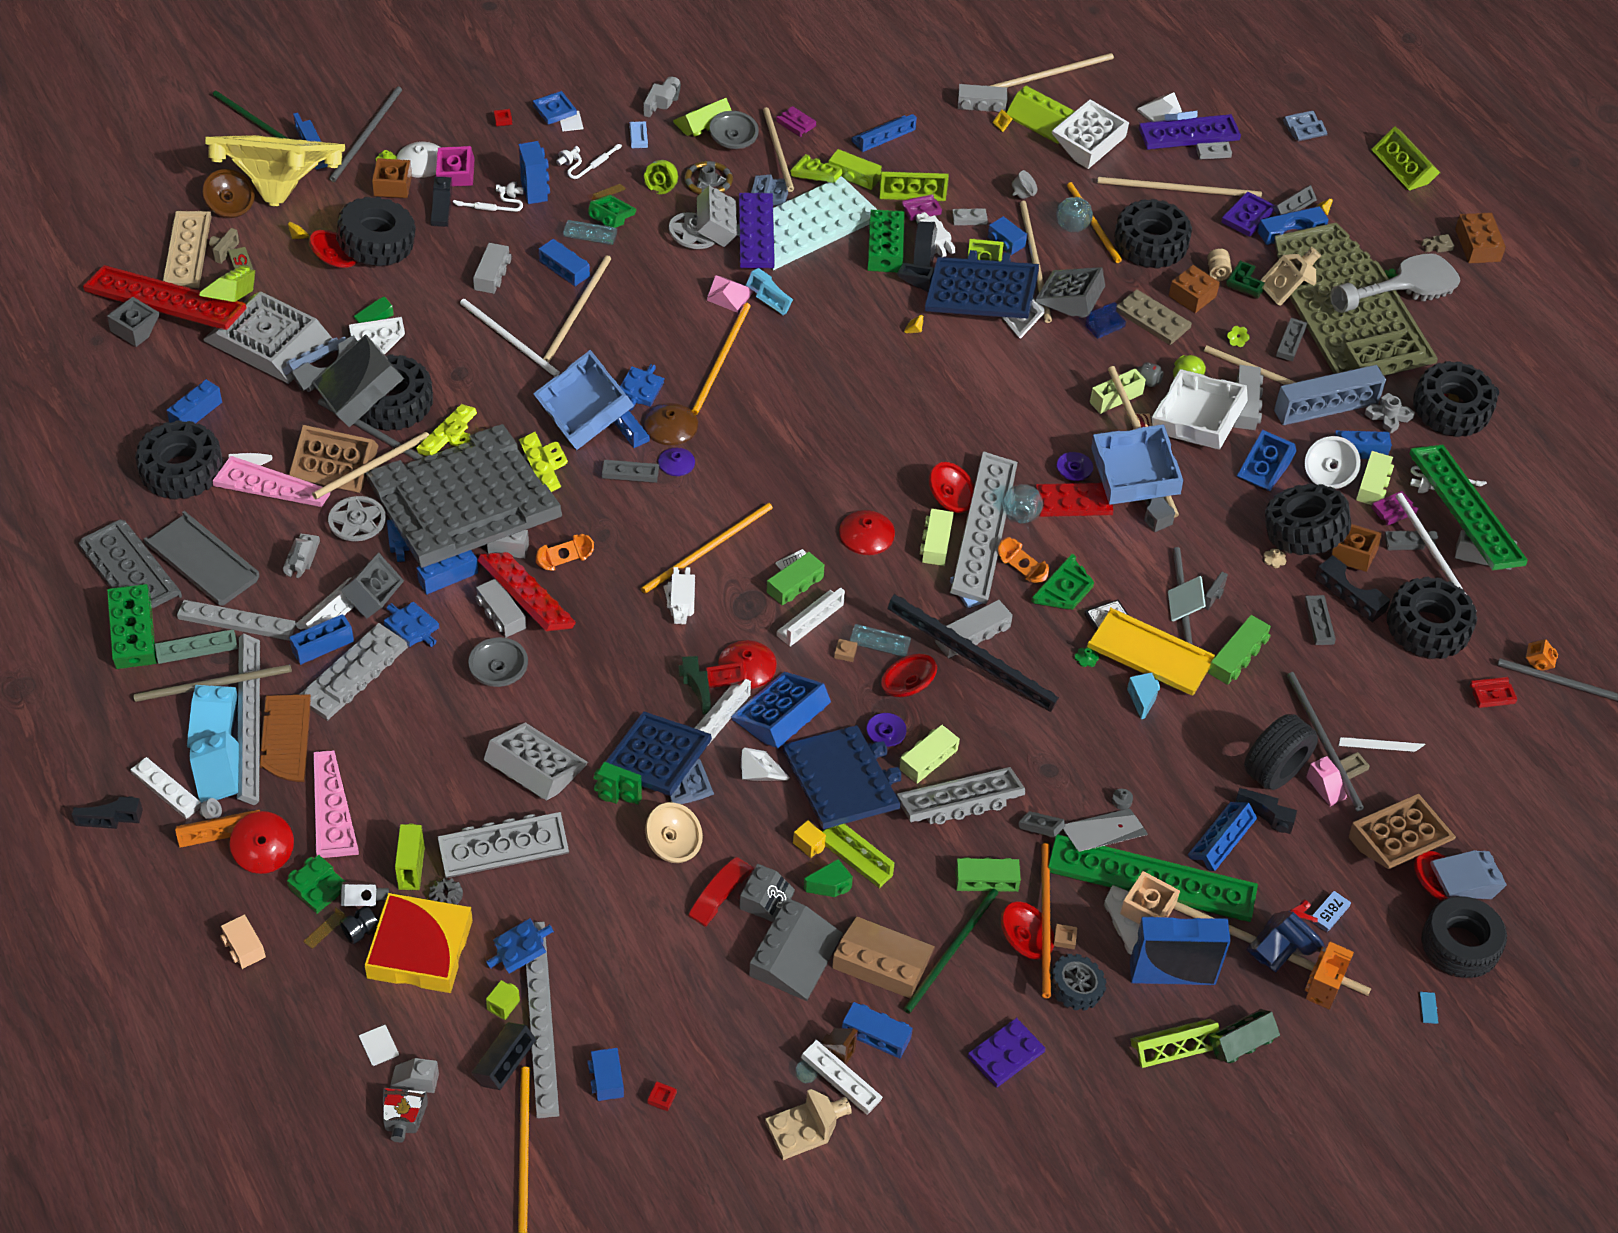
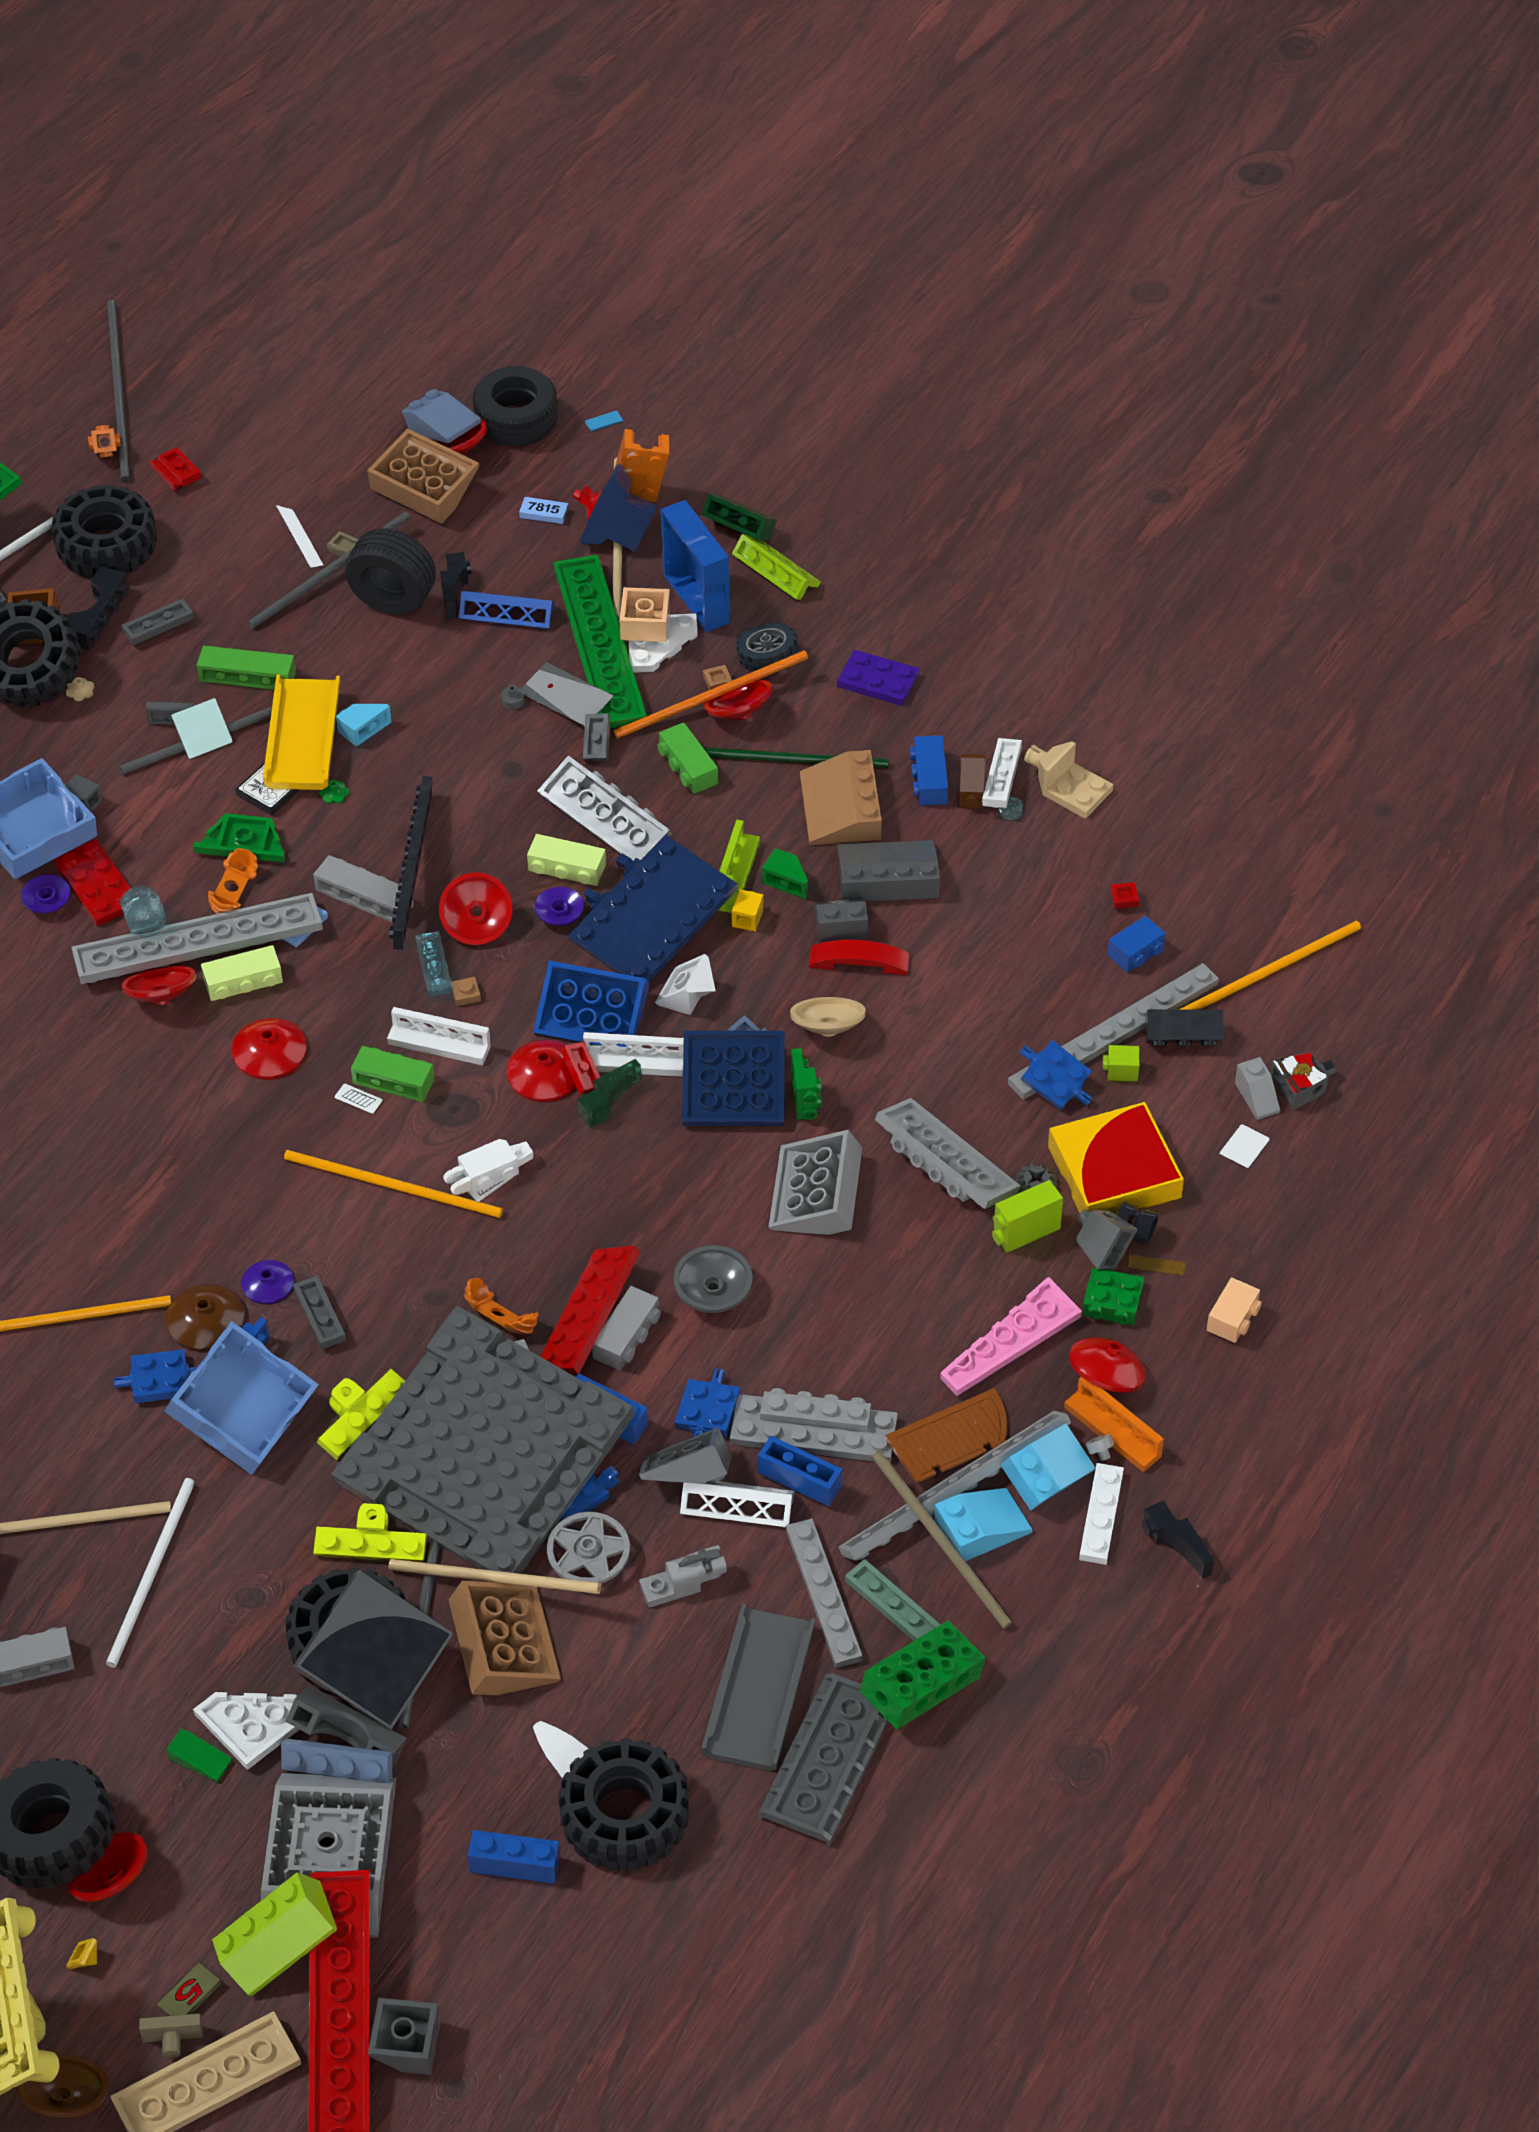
camera: 115 degrees left, 0 degrees up
(259, 480) = (590, 1696): bright pink wing -> none

